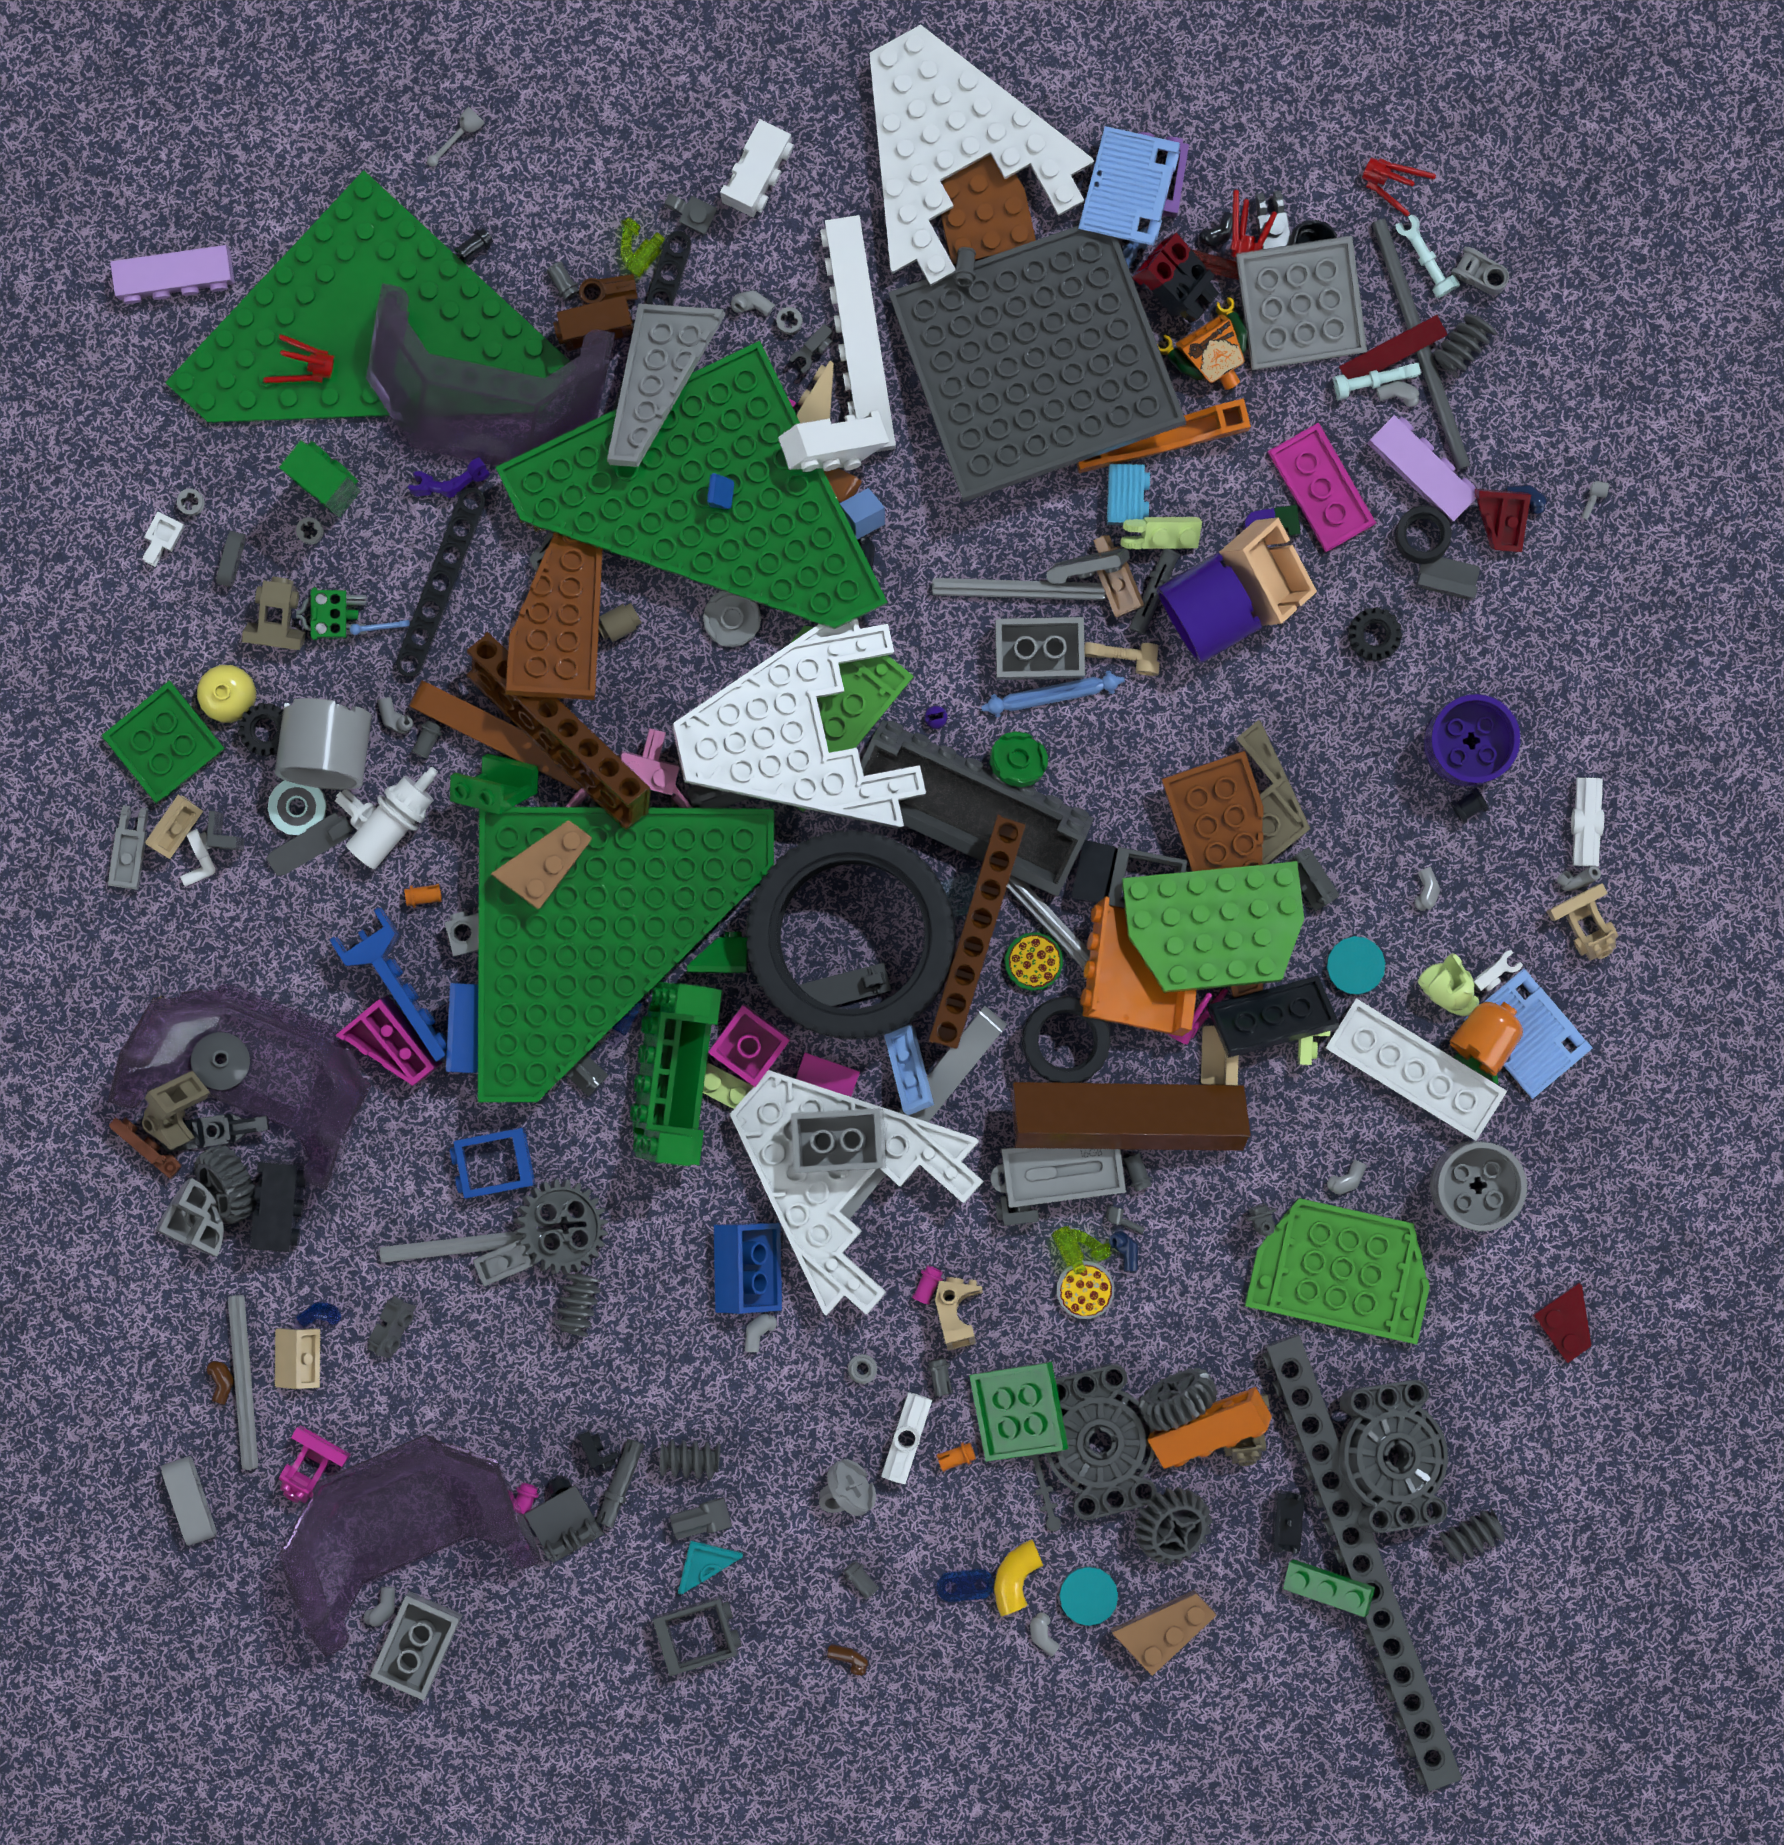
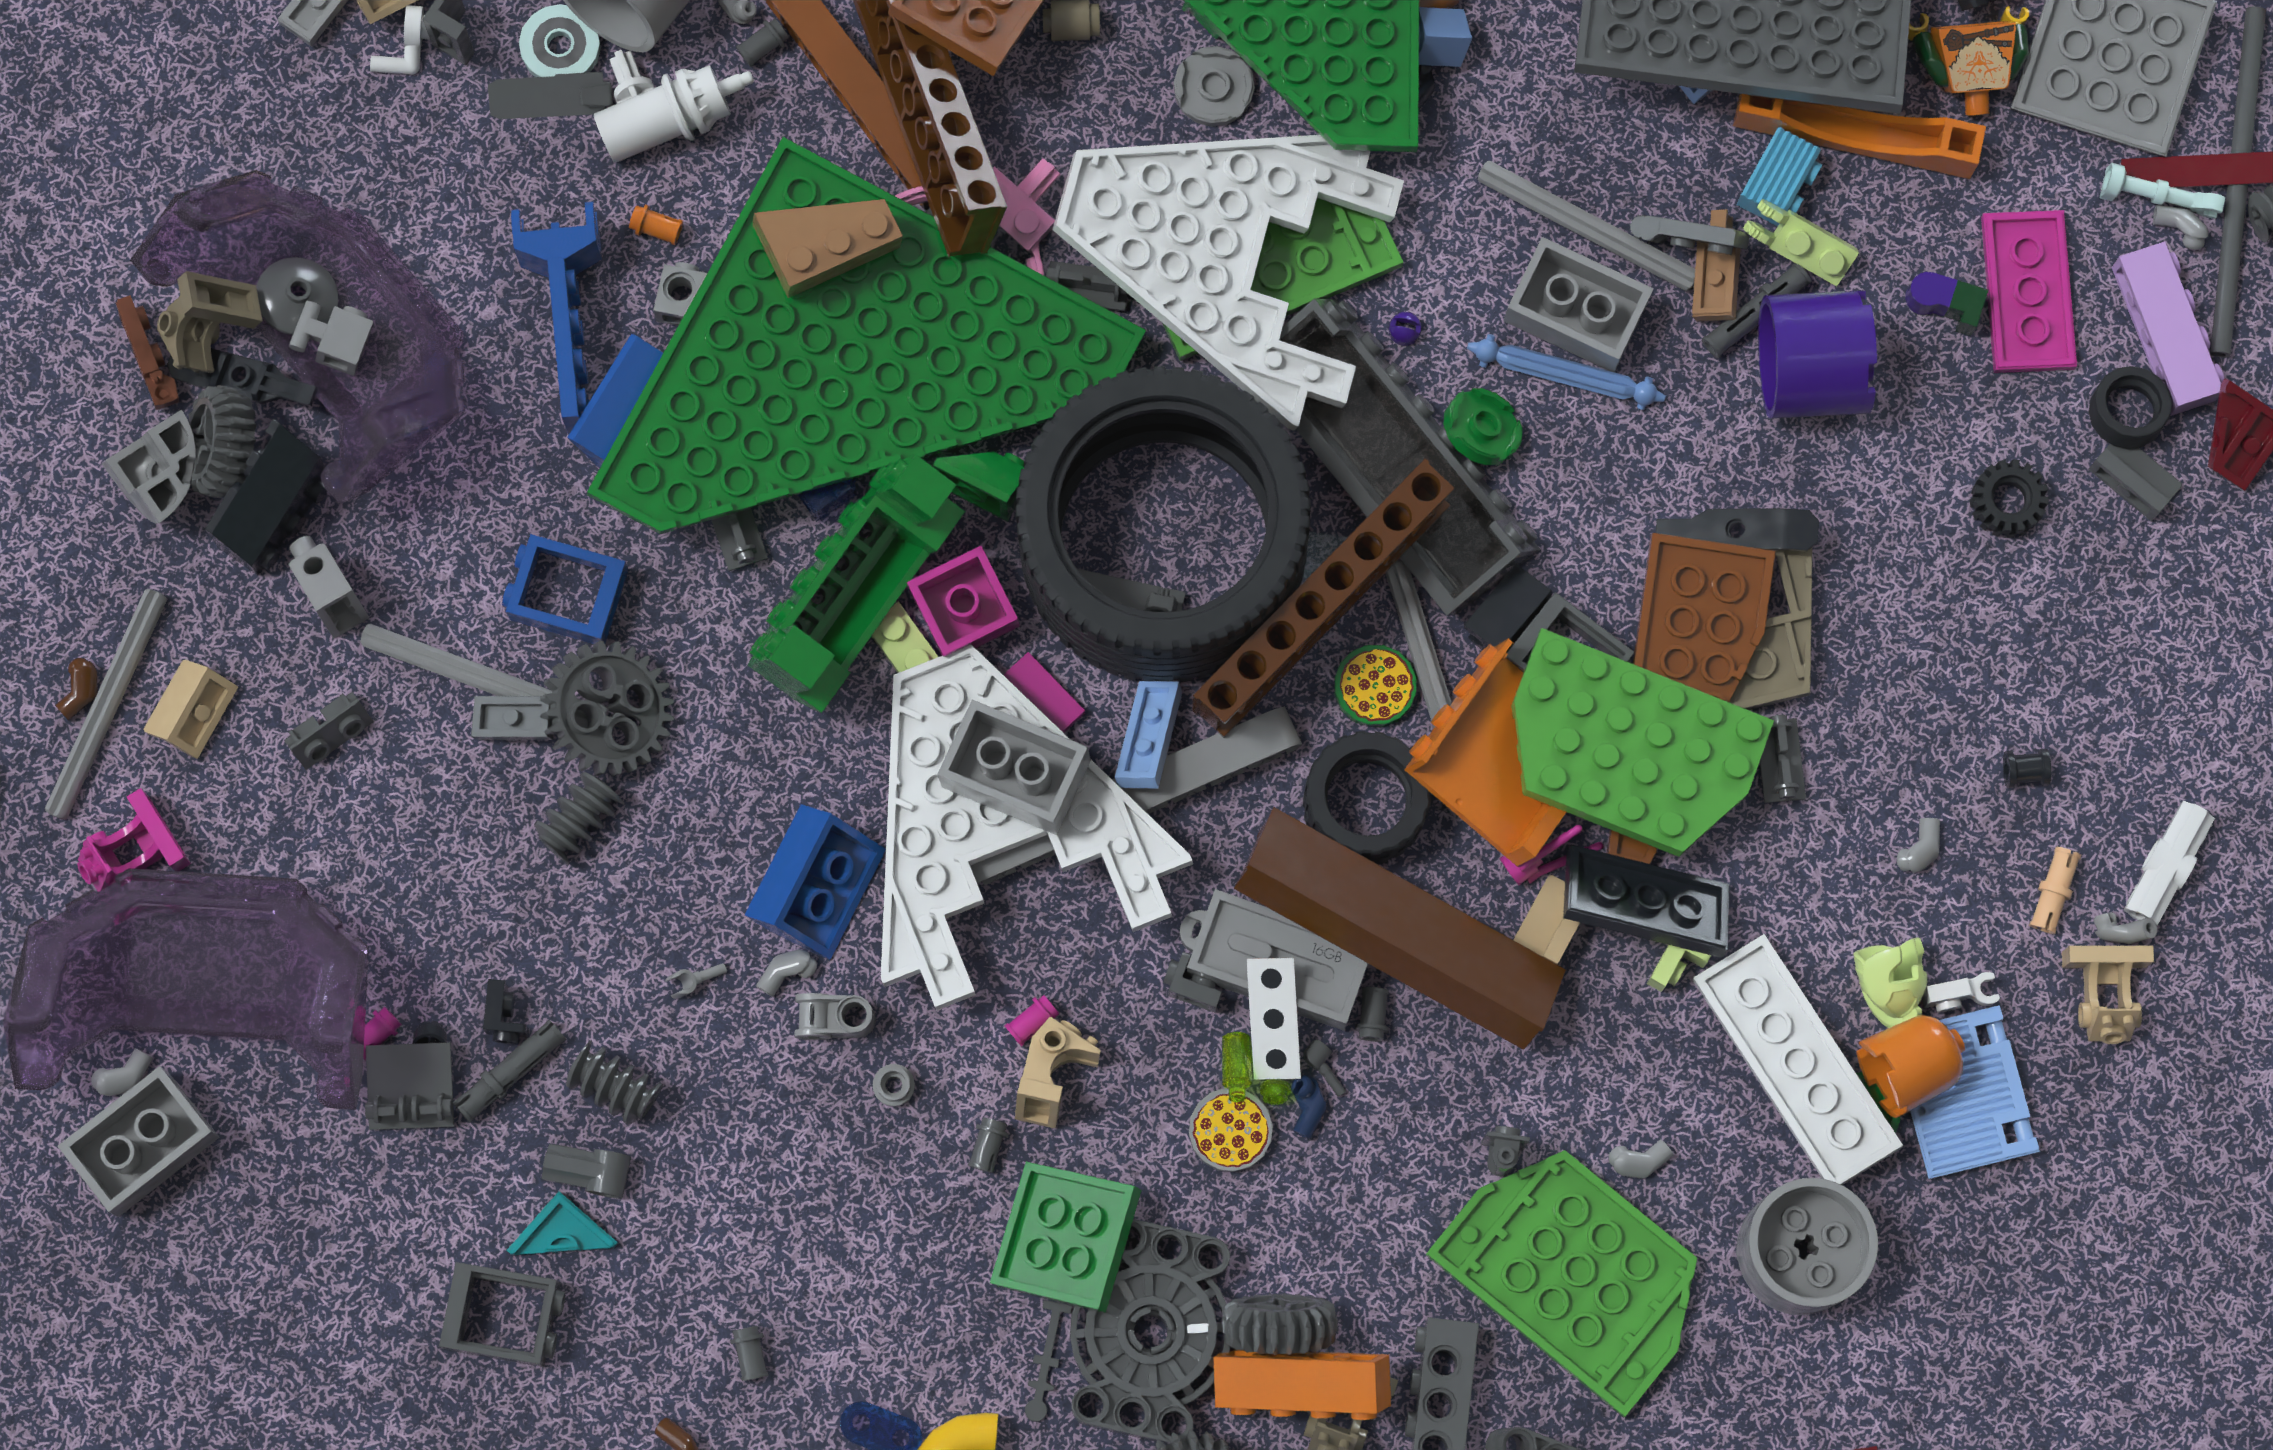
camera: 20 degrees right, 10 degrees down
(265, 1076) = (340, 340): none -> light grey brick
(320, 1311) = (251, 665): clear blue arm -> none
(349, 1244) = (326, 586): none -> light grey torso
(391, 1041) = (521, 374): dark pink wedge -> none
(498, 787) = (819, 130): green panel -> none
(702, 1368) = (690, 980): none -> light grey hand
(801, 1347) = (830, 1016): none -> light grey piece
(848, 1488) = (797, 1223): light grey tile -> none
(900, 1456) = (883, 1220): white piece -> none
(956, 1456) = (955, 1258): orange pin -> none
(1078, 1211) = (1273, 1018): none -> white sticker
(1145, 658) = (1704, 386): tan brick -> none
(1230, 738) = (1763, 528): none -> black piece
(1270, 575) = (1916, 362): light nougat piece -> none
(1355, 965) = (1783, 896): teal tile -> none
(1485, 721) = (2102, 675): dark purple brick -> none
(1524, 875) = (2055, 890): none -> light nougat pin

